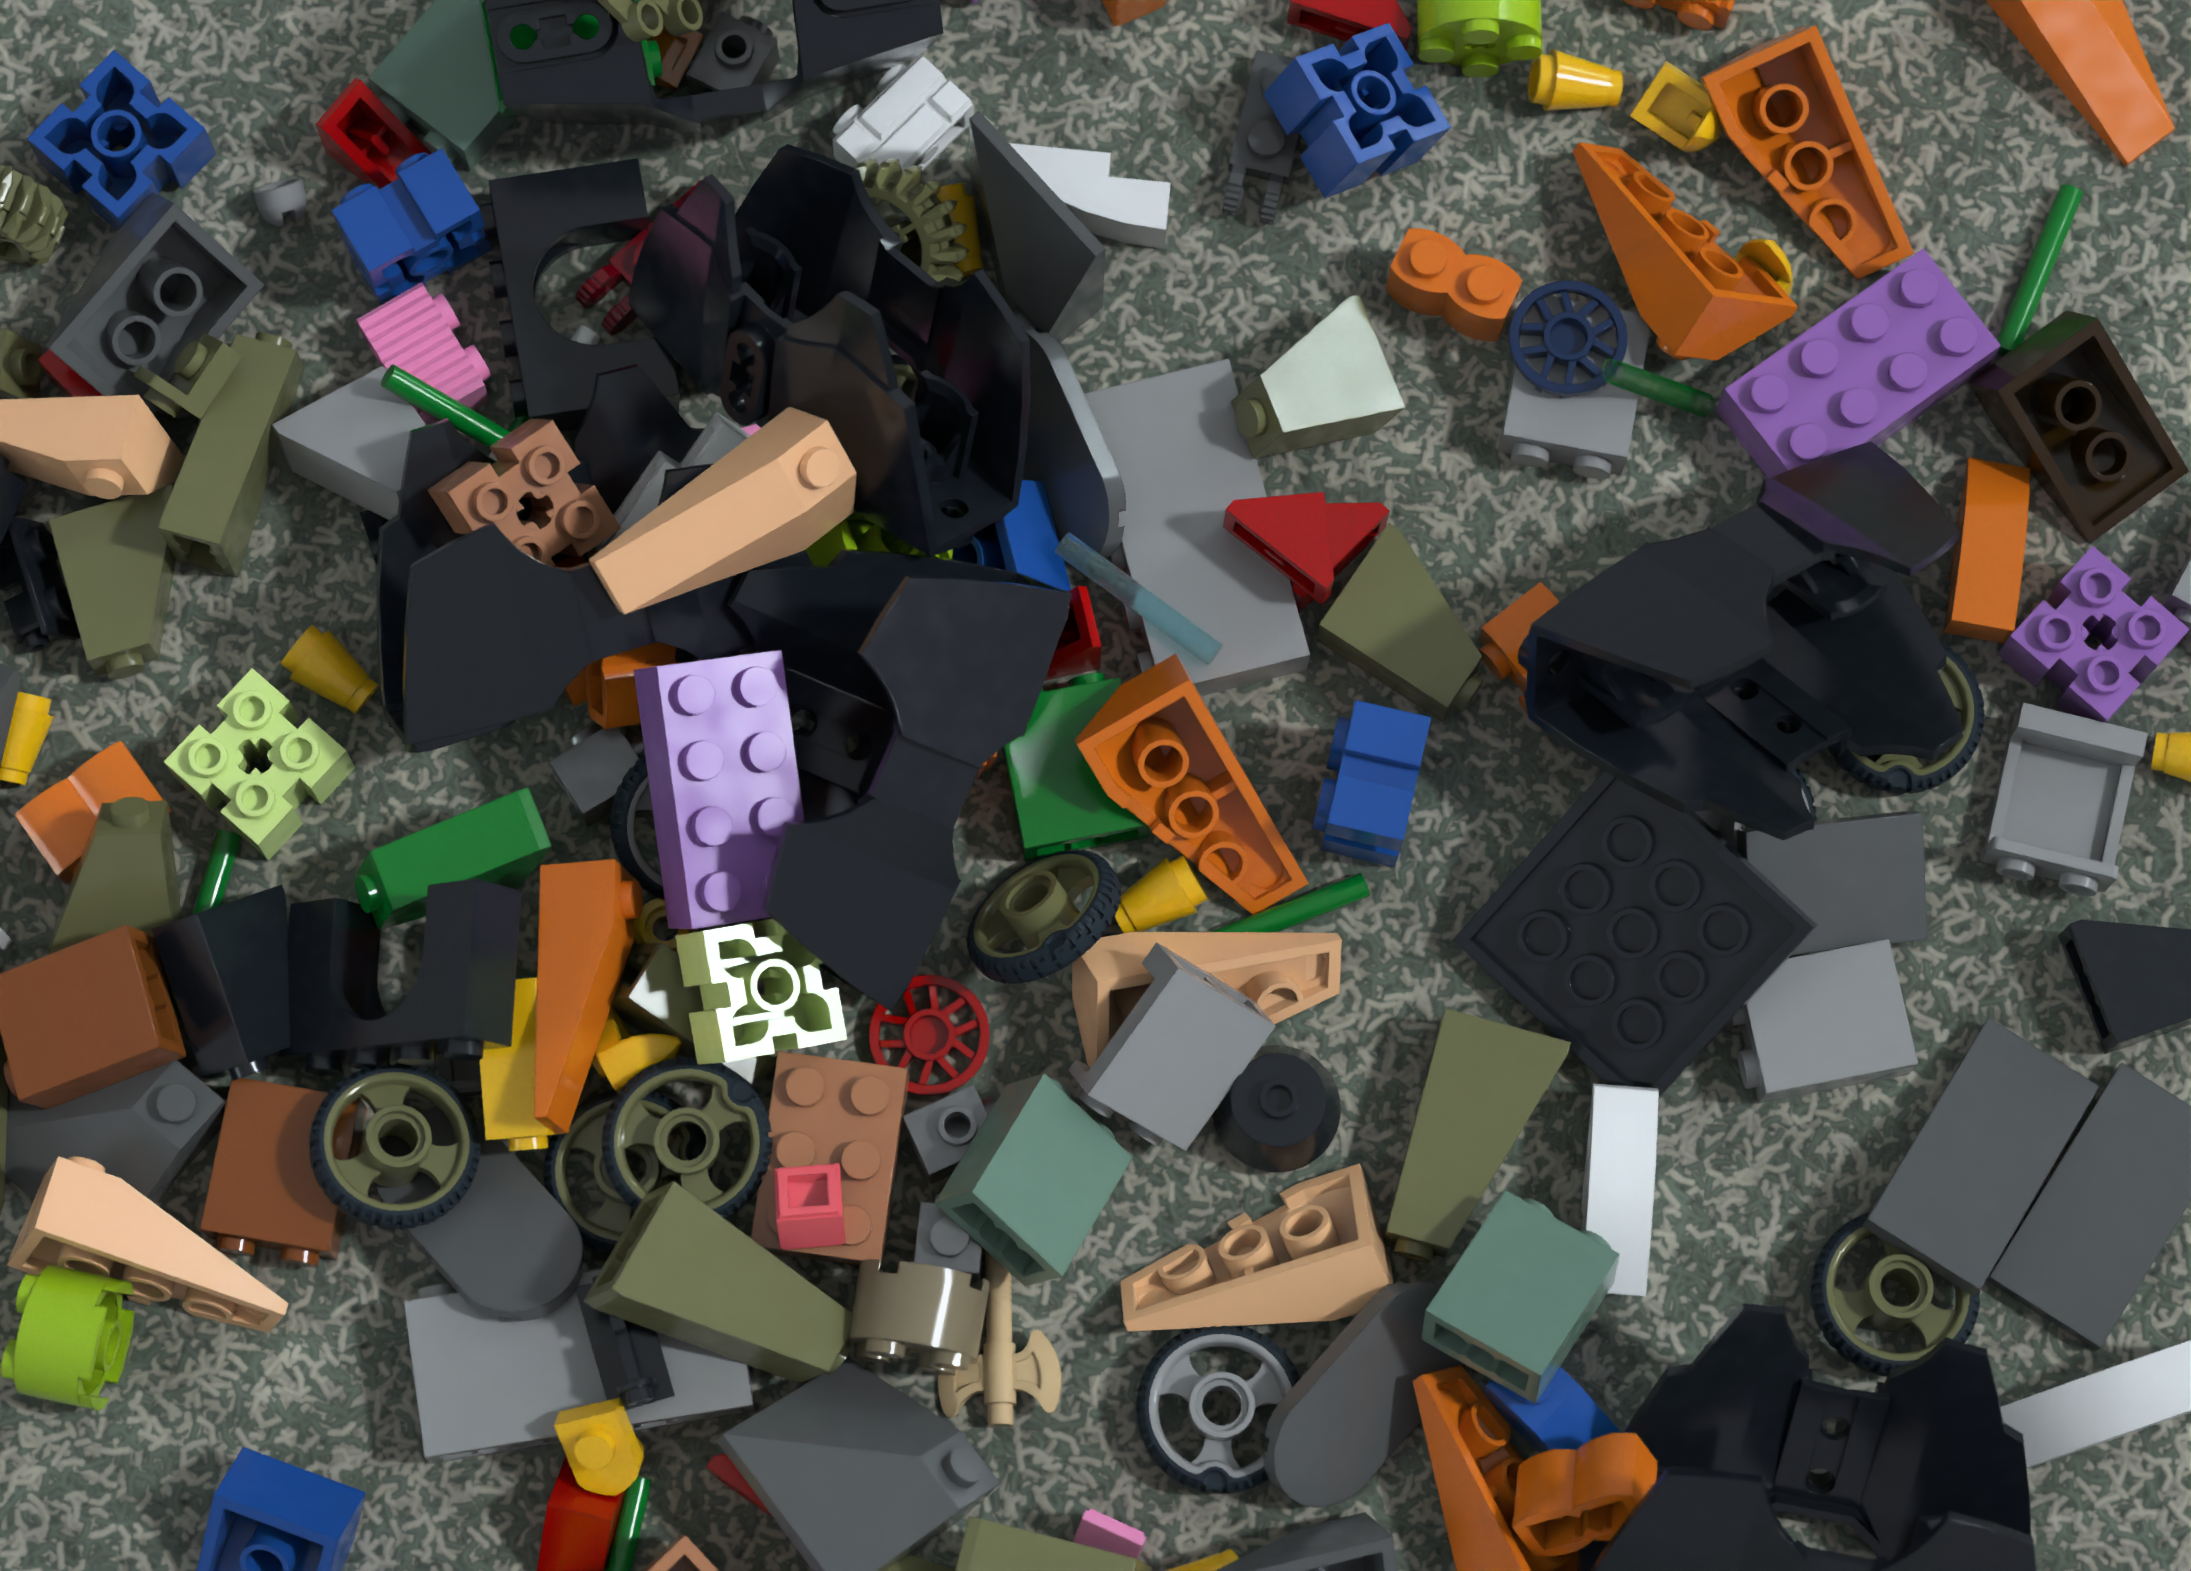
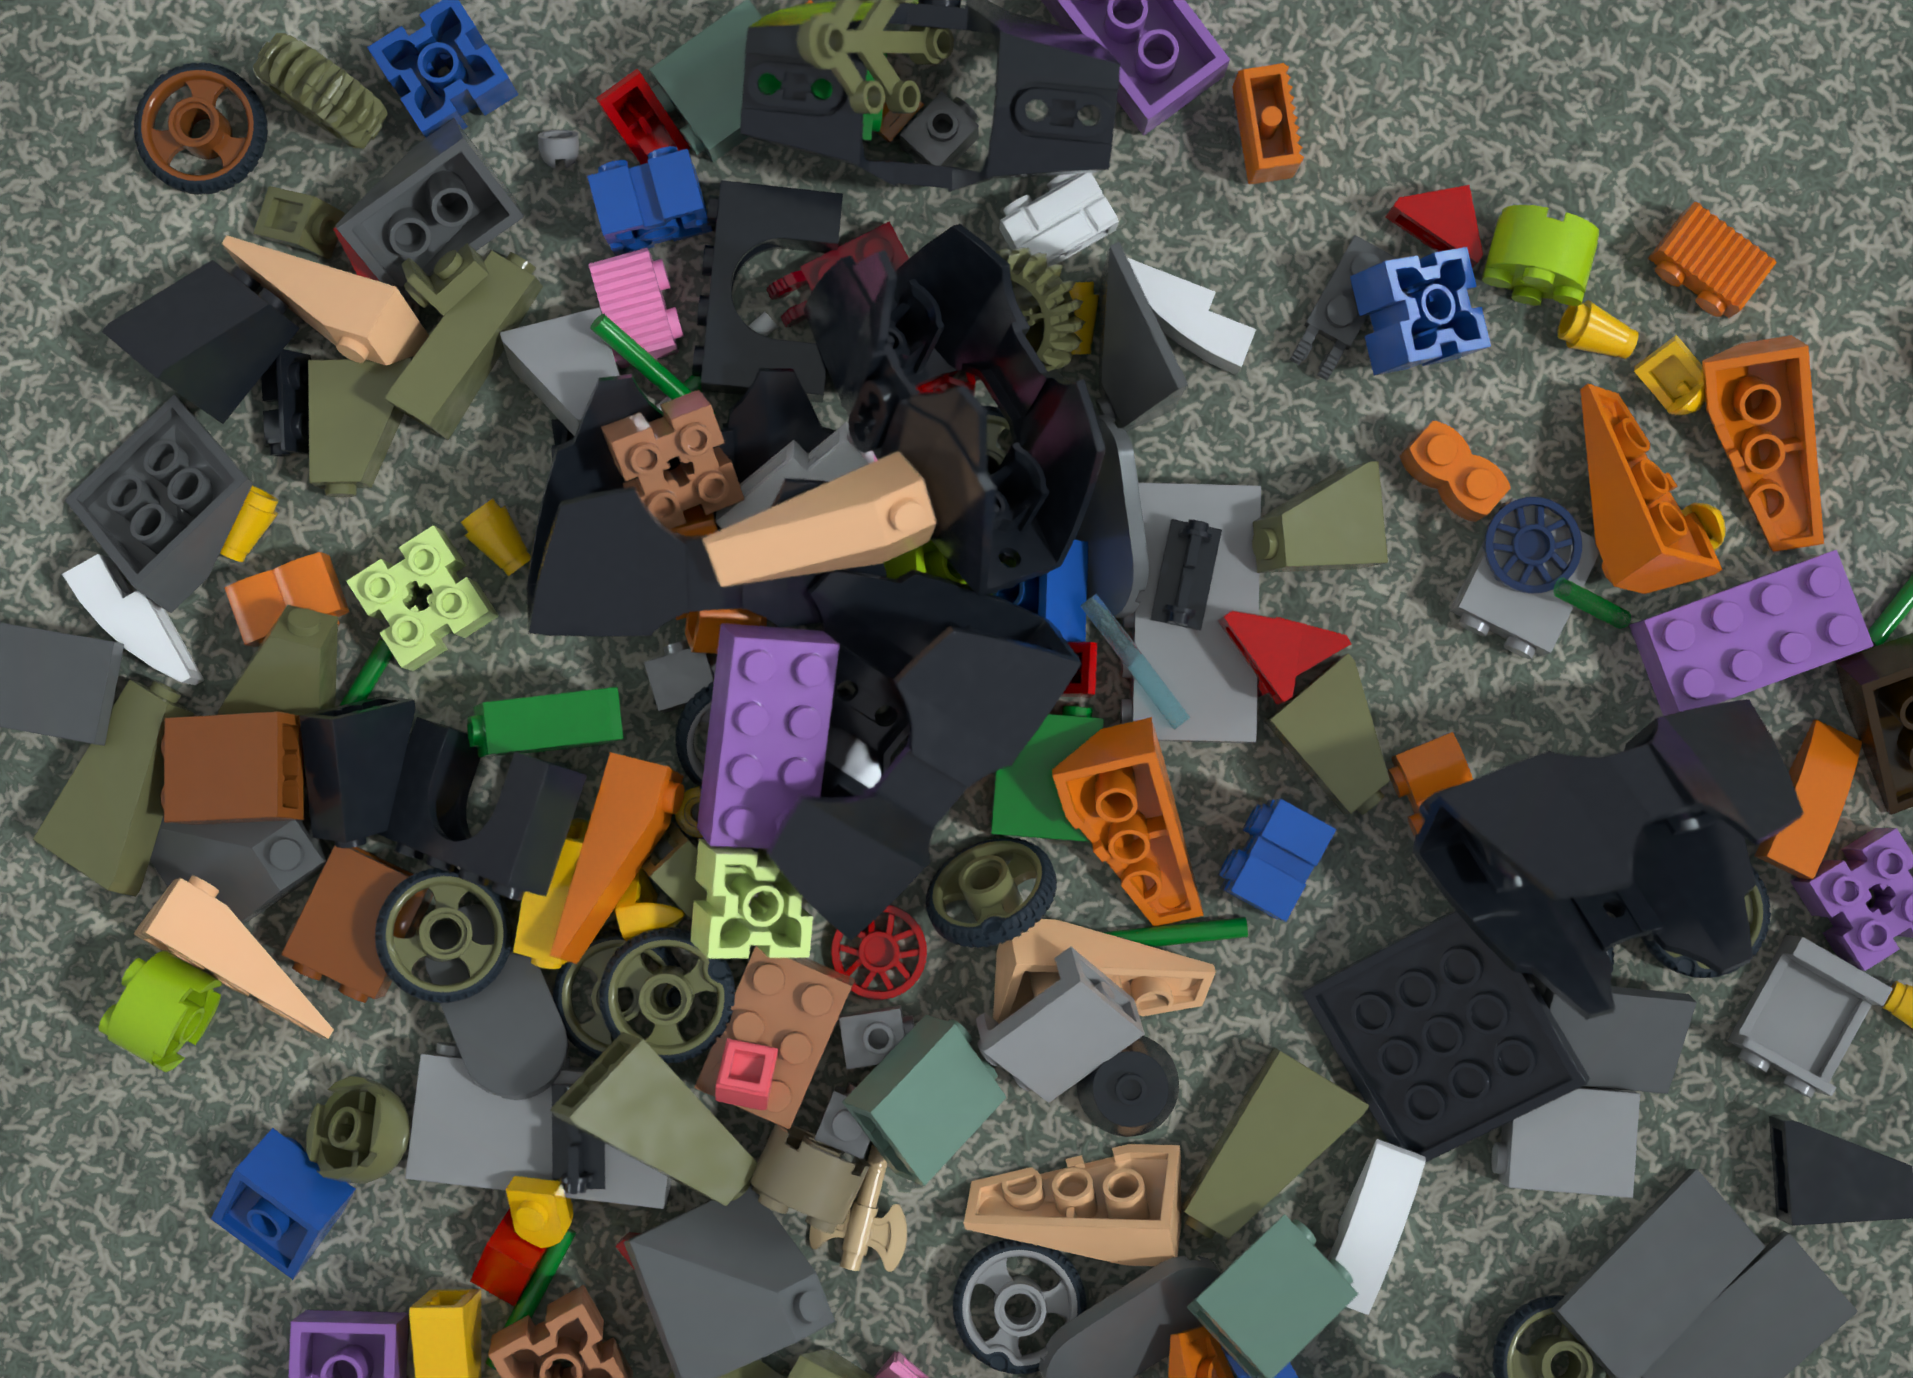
camera: 15 degrees right, 10 degrees up
(351, 1417) = (358, 1131): none -> olive cylinder
(1160, 896) = (1087, 895): yellow cone -> none
(1169, 479) = (1186, 574): none -> black hinge

